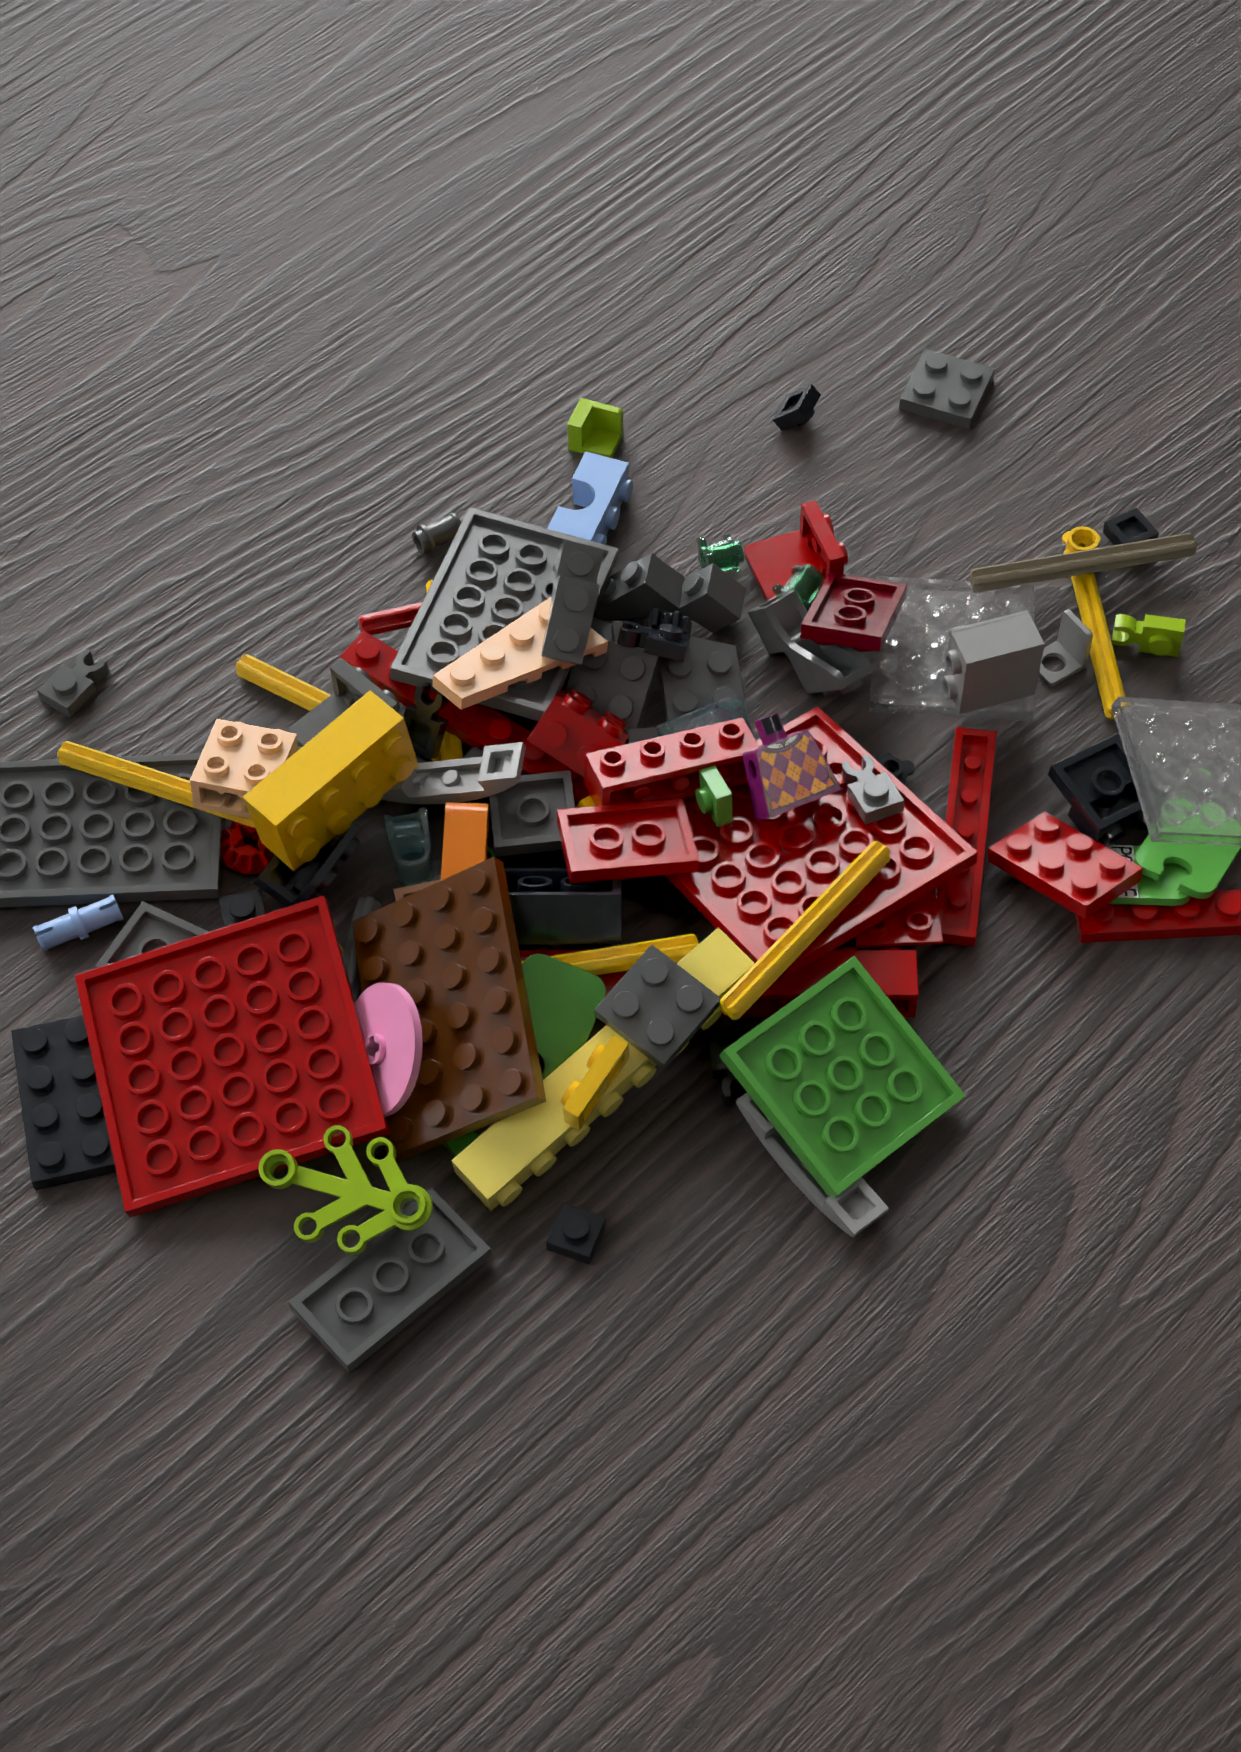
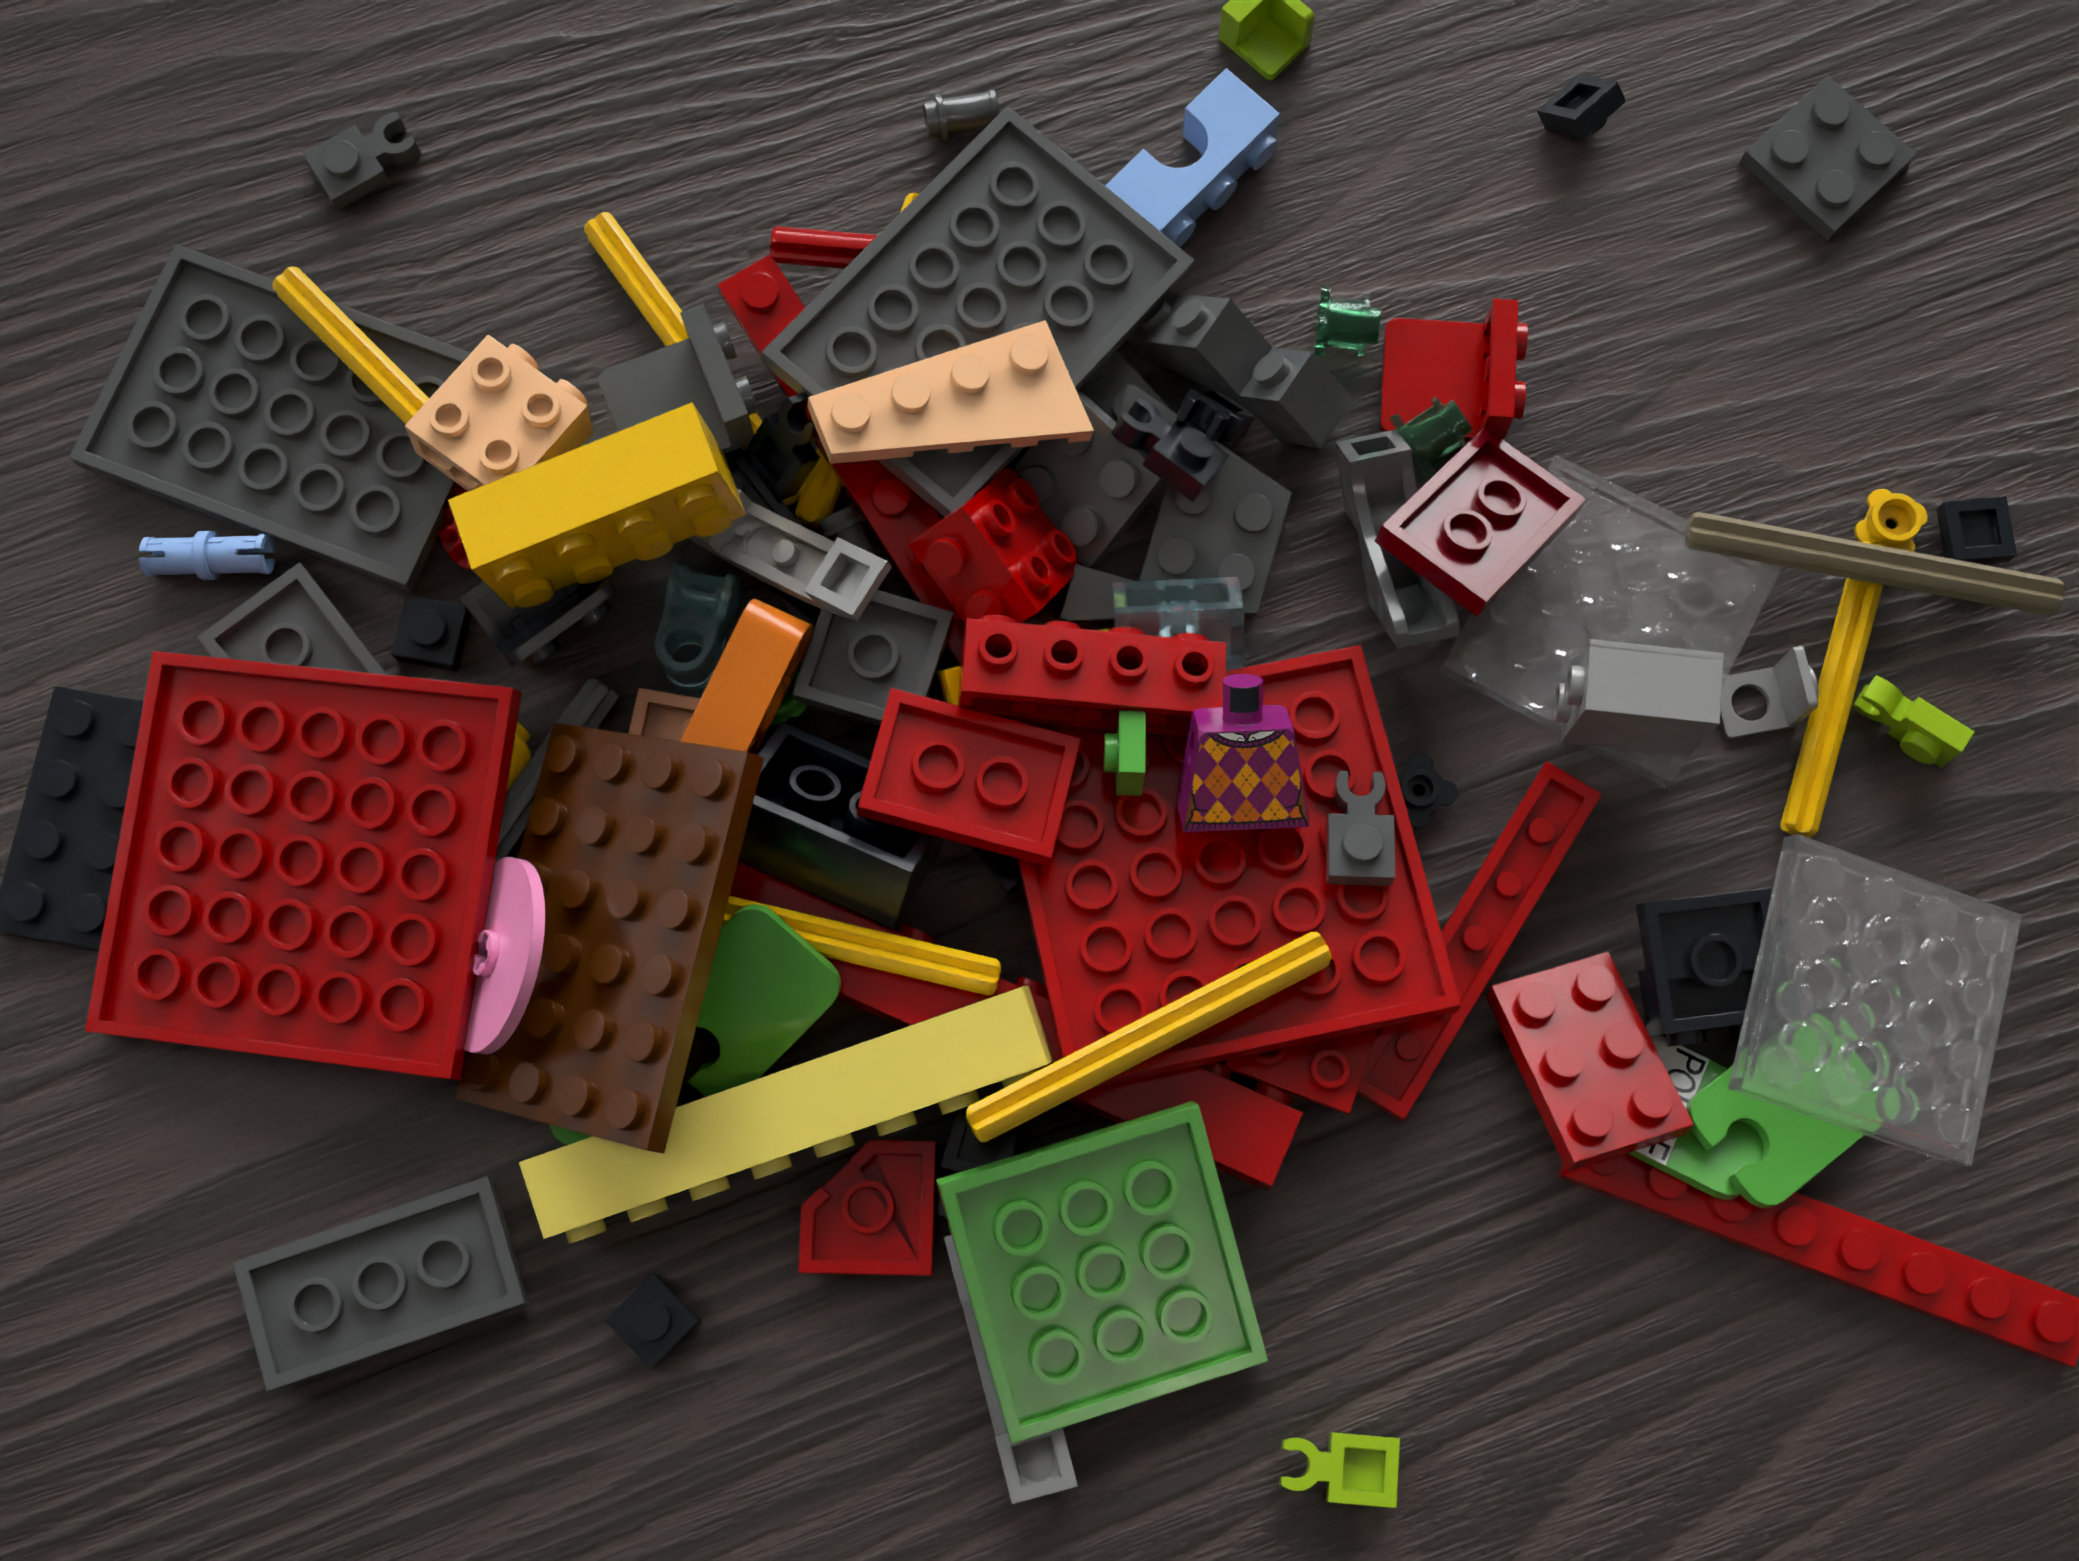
camera: 25 degrees right, 20 degrees up
(353, 1192) = (370, 1149): lime plant -> none
(572, 602) = (1063, 351): dark grey arch -> none
(604, 1065) = (718, 1164): yellow plate -> none
(657, 1006) = (881, 1072): dark grey plate -> none
(685, 1116) = (874, 1214): none -> red plate
(1046, 1133) = (1355, 1469): none -> lime plate

